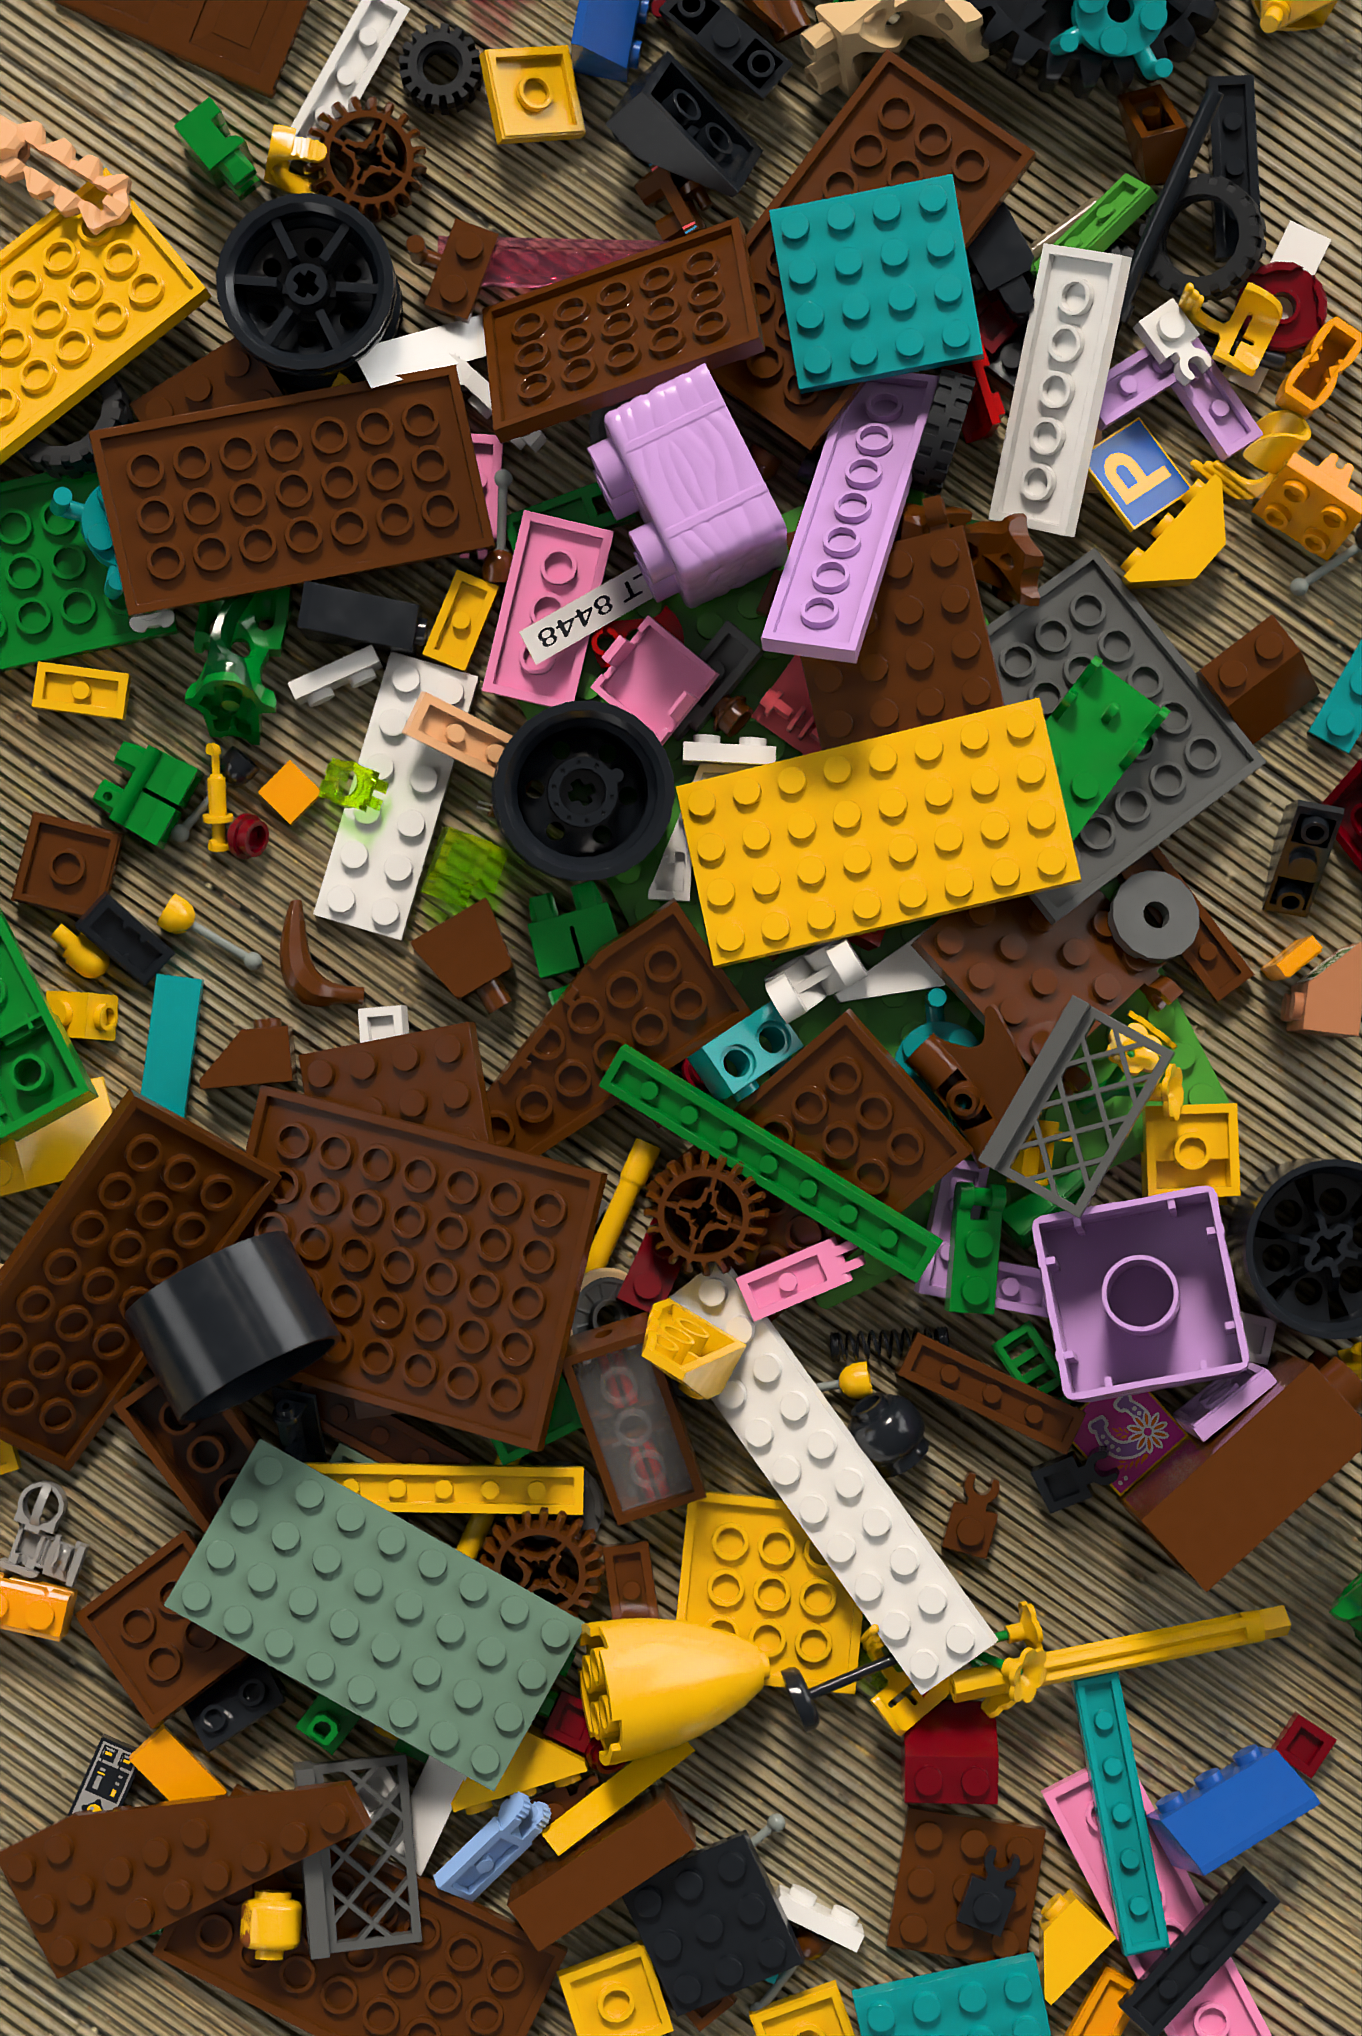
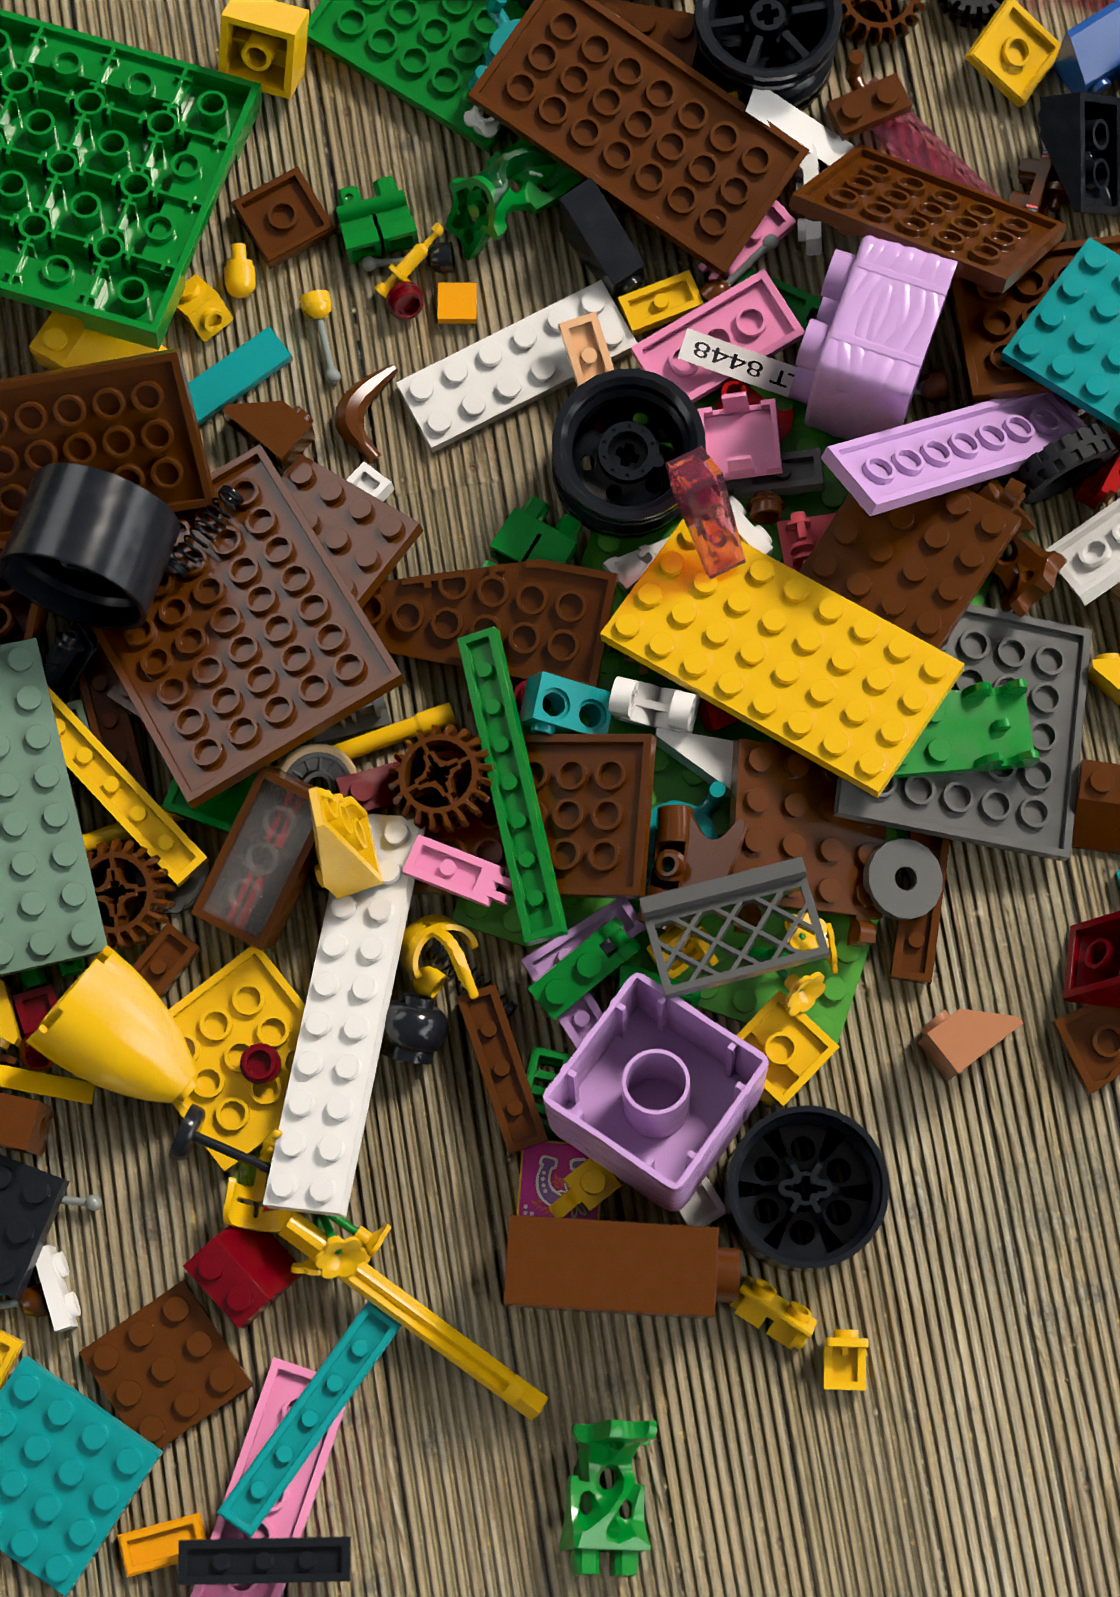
camera: 50 degrees right, 10 degrees down
(81, 691) = (397, 128): yellow plate -> none
(124, 938) = (272, 287): black plate -> none
(290, 1155) = (232, 496): none -> black piece
(319, 684) = (540, 257): white plate -> none
(362, 795) = (504, 332): clear neon green piece -> none
(462, 864) = (513, 438): clear neon green brick -> none
(469, 955) = (463, 494): reddish brown torso -> none
(705, 783) = (706, 510): none -> clear pink slope
(797, 1584) = (260, 1064): none -> dark red plate
(816, 1356) = (418, 934): none -> yellow helmet
(970, 1523) = (405, 1144): reddish brown plate -> none
(987, 1898) = (170, 1385): black plate -> none
(1068, 1481) = (494, 1176): black plate -> none
(1068, 1942) = (192, 1469): yellow slope -> none
(1149, 1415) = (587, 1185): none -> yellow plate
(1223, 1401) = (641, 1213): lavender tile -> none
(1230, 1810) = (379, 1485): blue slope -> none
(1292, 958) = (964, 992): light orange tile -> none
(1300, 856) = (1034, 937): black slope -> none
(1304, 1744) = (469, 1501): dark red plate -> none

